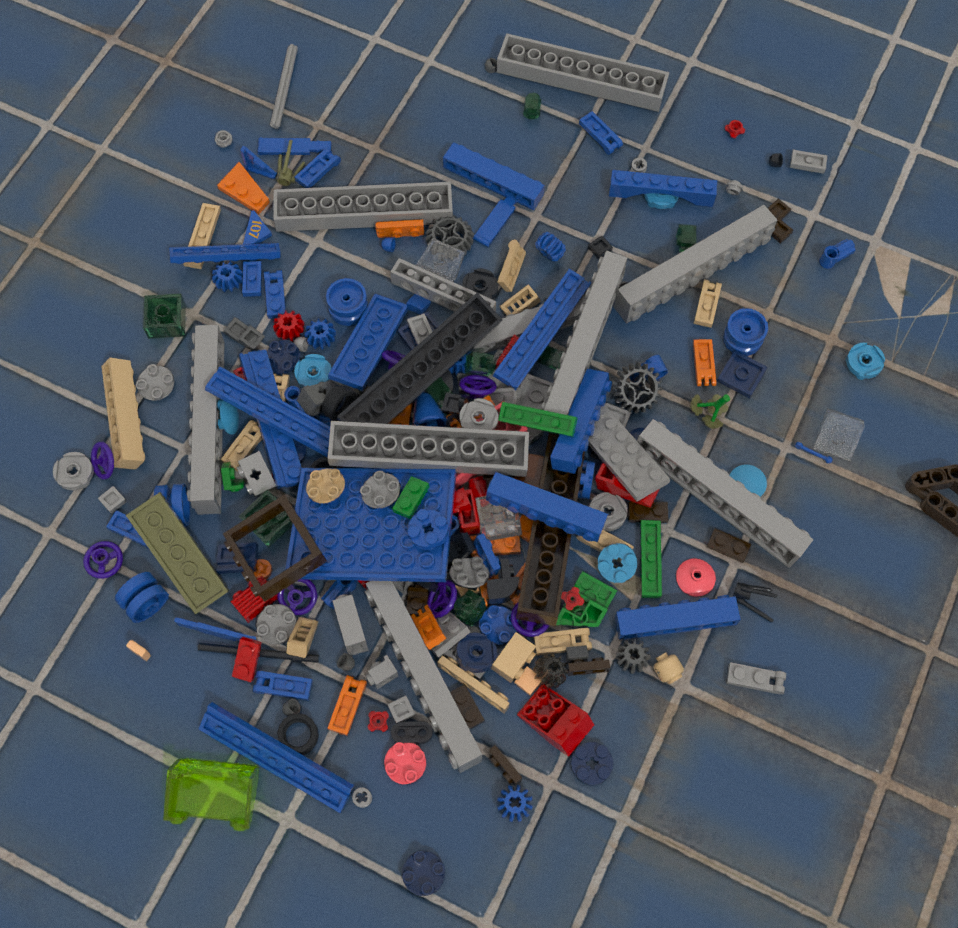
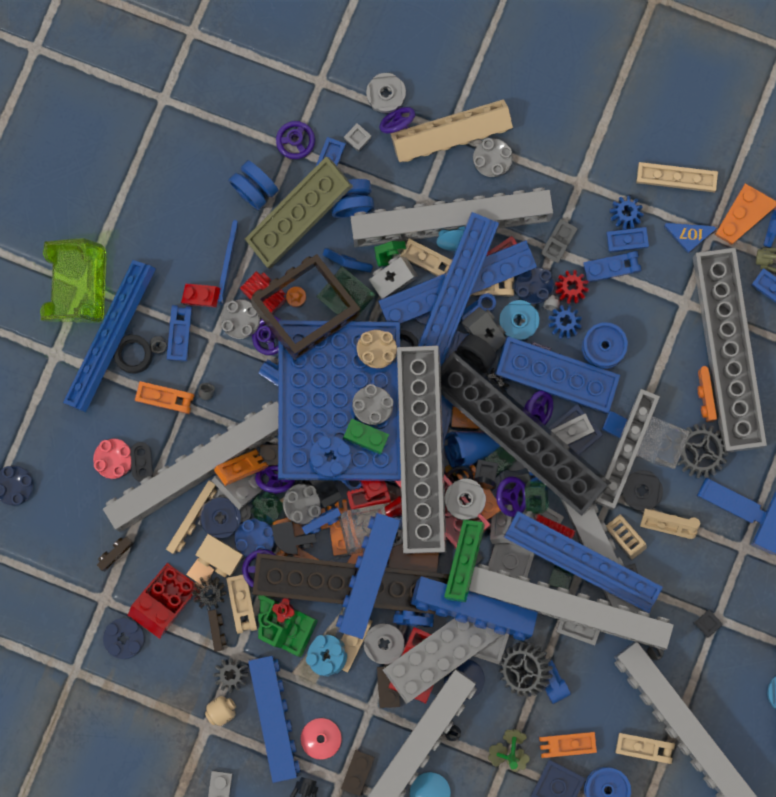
camera: 90 degrees right, 15 degrees up
(138, 650) = (203, 190): light nougat tile -> none
(164, 316) = (569, 154): clear green brick -> none
(224, 252) = (652, 205): blue plate -> none
(227, 565) = (310, 280): dark blue plate -> none
(232, 518) = (347, 261): none -> blue tile
(263, 653) = (209, 343): black bar -> none
(301, 638) = (216, 342): tan slope -> none
(350, 624) = (240, 391): light grey brick -> none
(362, 804) = (73, 423): light grey bush -> none
(374, 716) = (156, 428): red plate -> none
(381, 673) = (197, 427): light grey brick -> none
(388, 244) = (686, 384): blue hinge -> none
(401, 709) = (162, 450): light grey plate -> none
(467, 707) = (170, 512): dark brown plate -> none
(515, 811) = (73, 567): blue gear -> none
(550, 246) = (696, 565): blue gear -> none
(576, 652) = (228, 617): dark grey slope -> none
(603, 347) = (578, 632): none -> light grey plate
(651, 559) = (335, 690): green plate -> none
(685, 236) = (725, 722): clear green brick -> none

